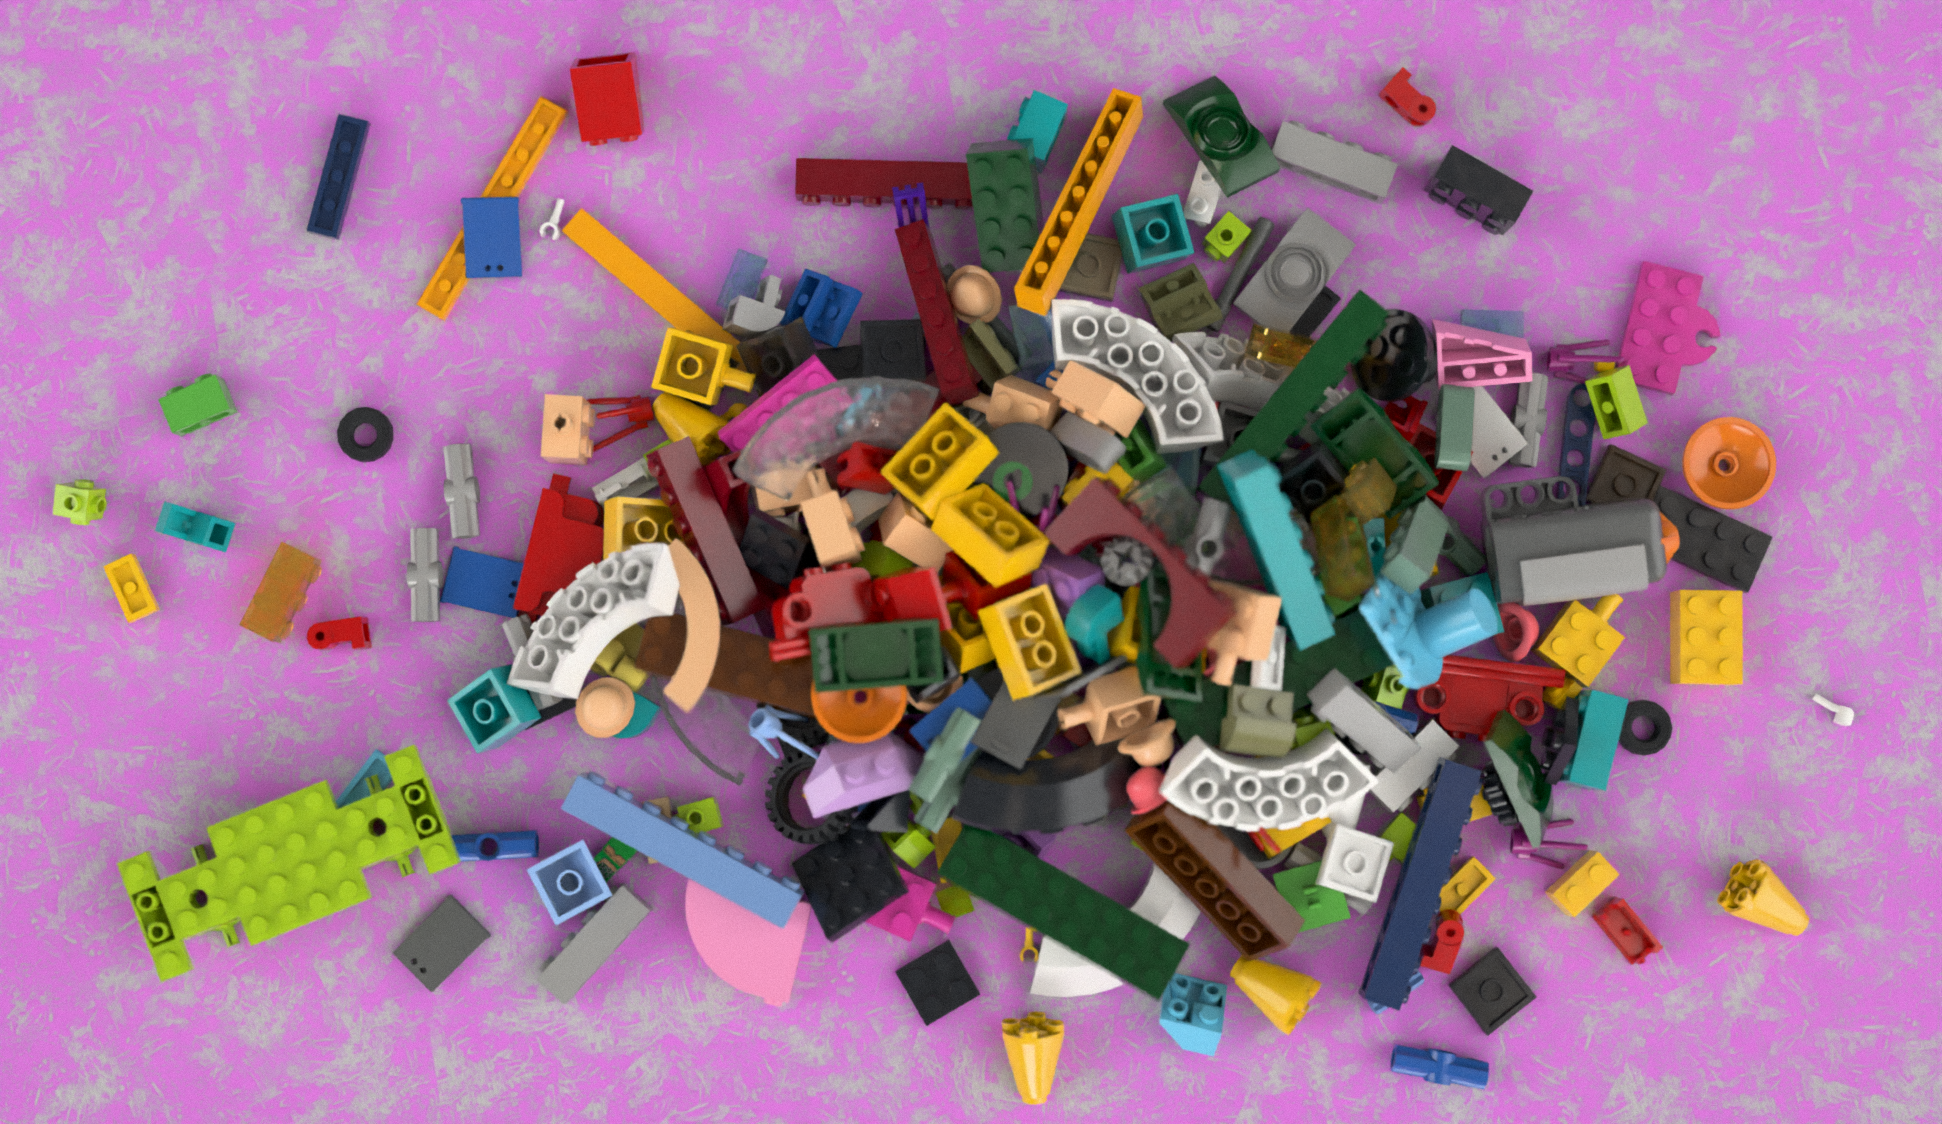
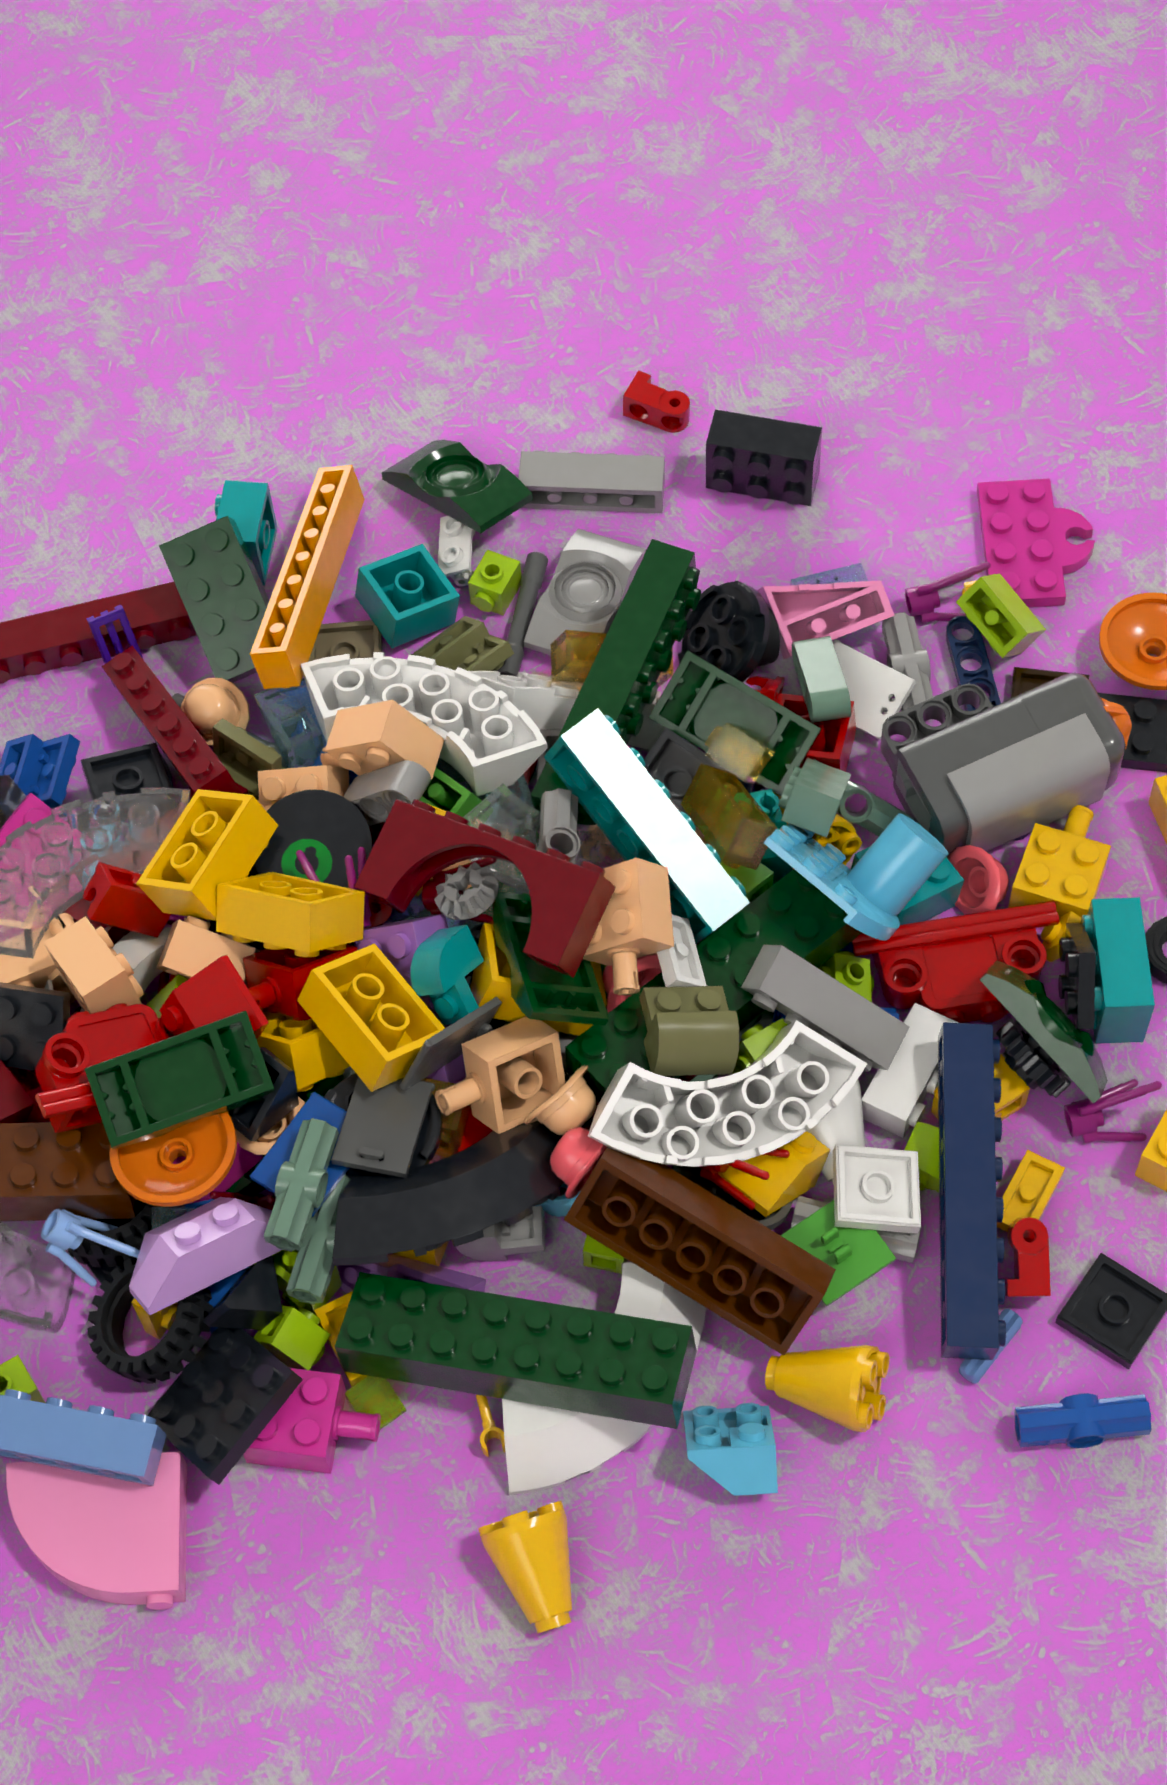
camera: 10 degrees left, 25 degrees down
(937, 982) = (380, 1515): black plate -> none

